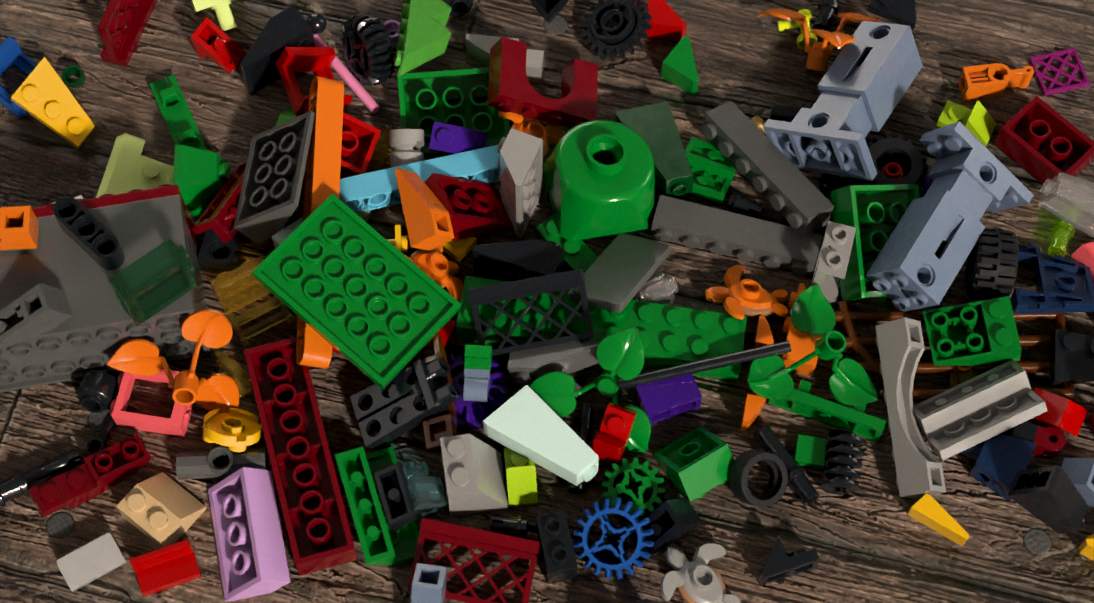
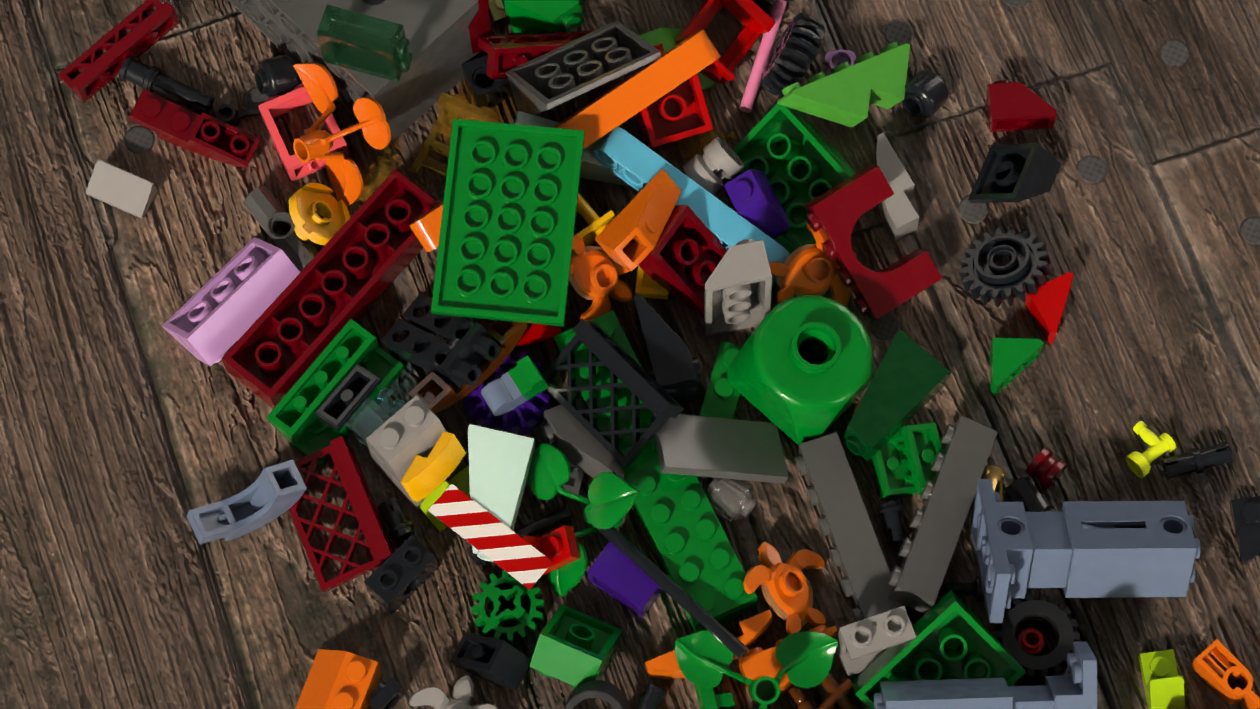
camera: 60 degrees right, 5 degrees up
(160, 509) = (205, 211): tan slope -> none
(166, 567) = (156, 255): red panel -> none
(499, 471) = (430, 472): none -> yellow slope
(581, 459) = (490, 536): none -> sticker
(619, 550) = (427, 639): blue gear -> none
(772, 92) = (1046, 468): none -> dark red wheel
(821, 51) = (1126, 482): orange plant -> none

